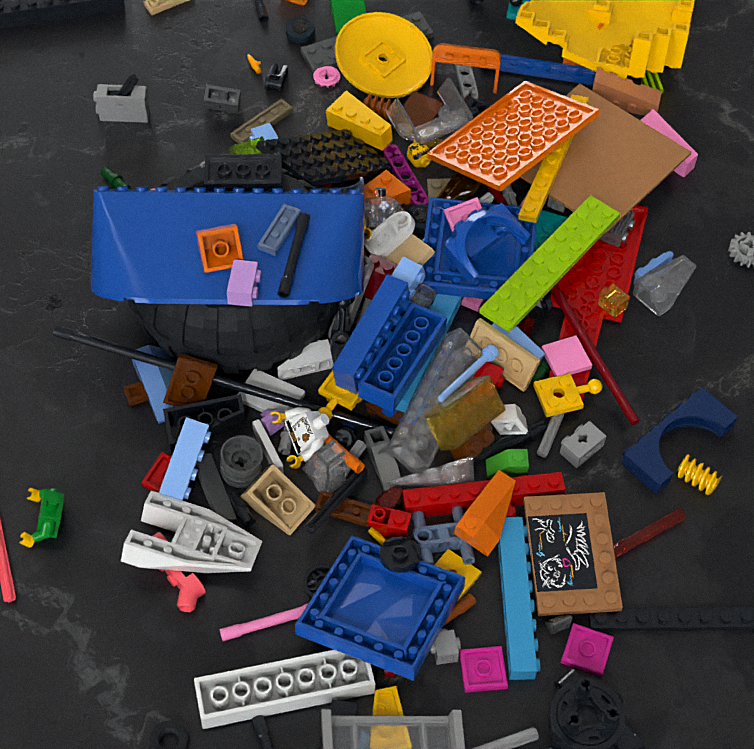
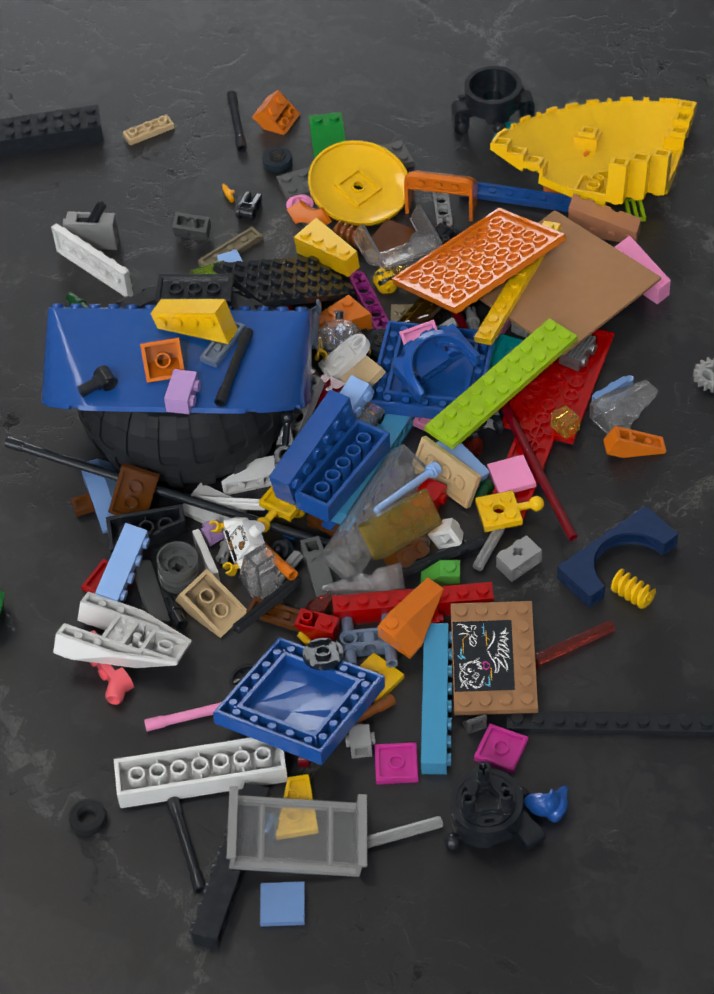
camera: 10 degrees right, 5 degrees down
(125, 134) = (92, 260): none -> white plate
(158, 270) = (101, 379): none -> black pin
(251, 203) = (196, 318): none -> yellow wedge
(291, 390) = (234, 503): none -> white axle
(330, 85) = (302, 213): none -> orange tile
(645, 712) = (548, 805): none -> blue hair
(679, 321) = (631, 443): none -> orange slope

